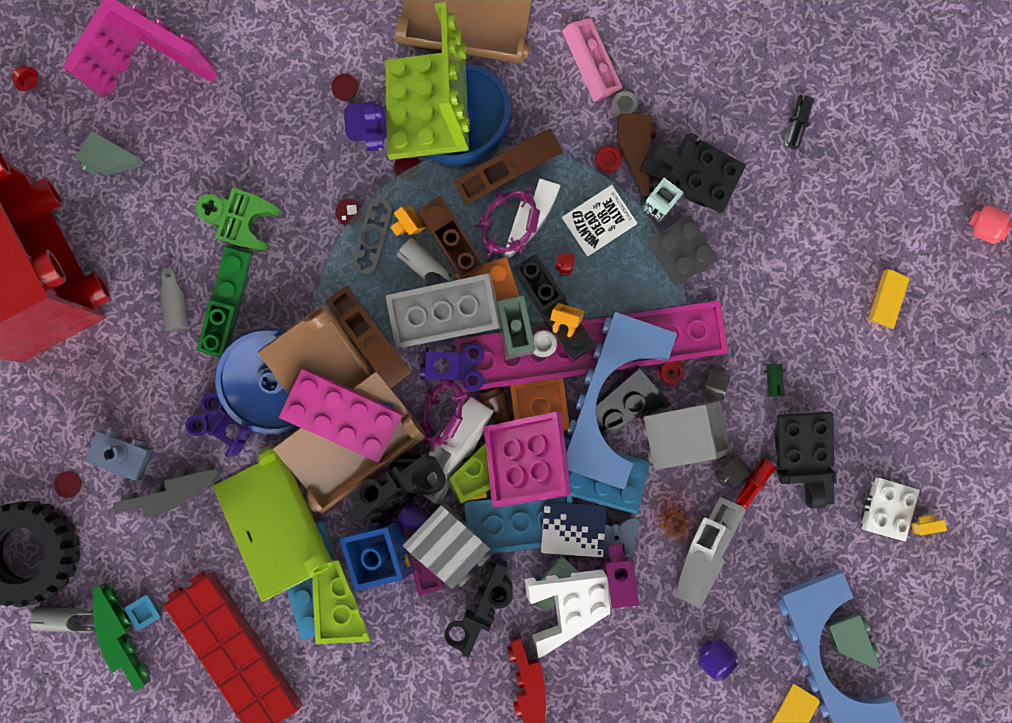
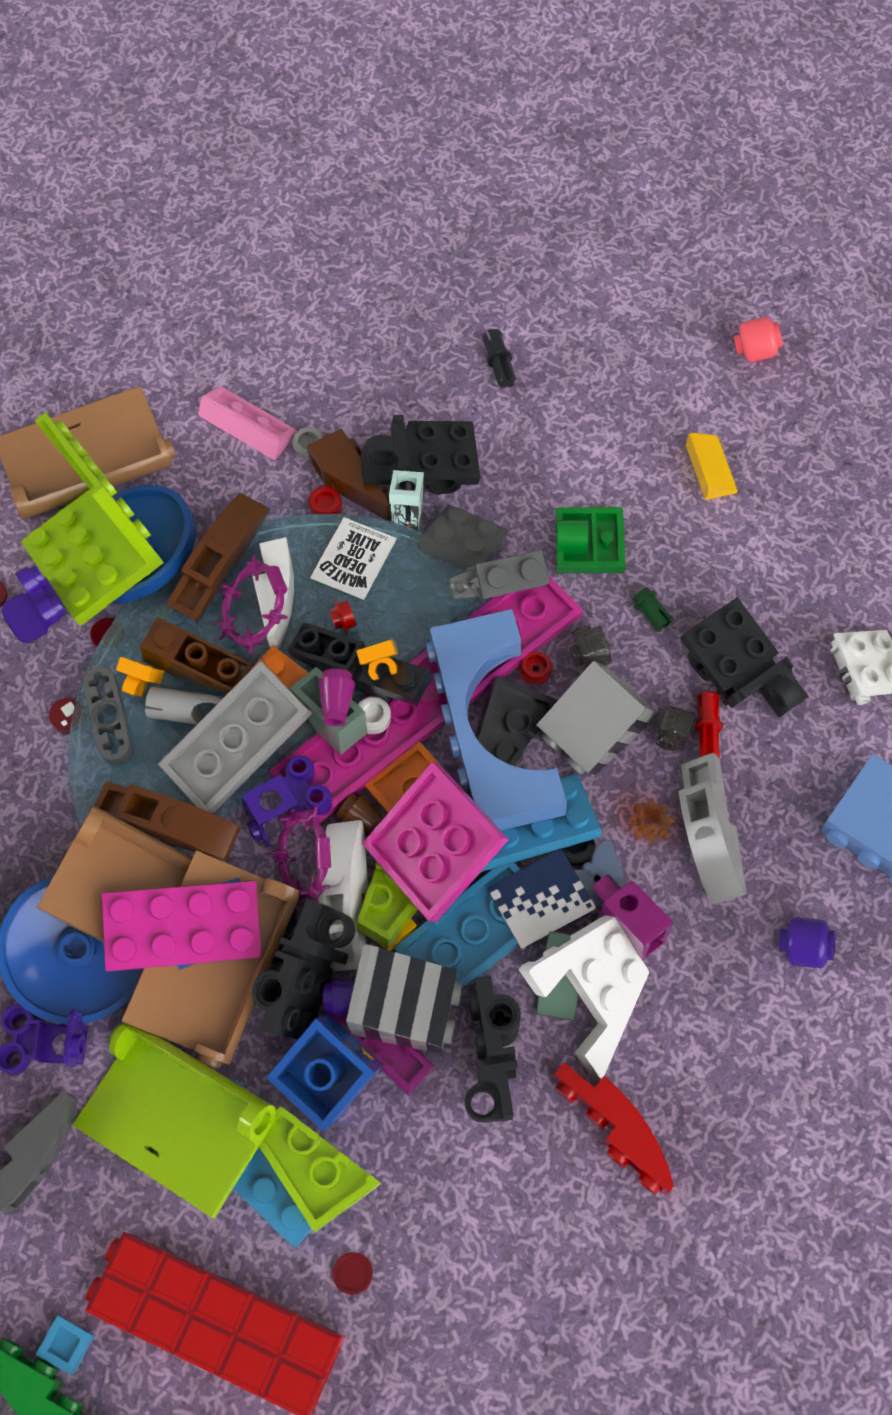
camera: 30 degrees left, 20 degrees down
(326, 673) = (352, 1273): none -> dark red piece
(521, 330) = (336, 694): none -> magenta cone
(685, 303) = (500, 577): none -> dark grey hinge
(767, 303) = (590, 540): none -> green plate

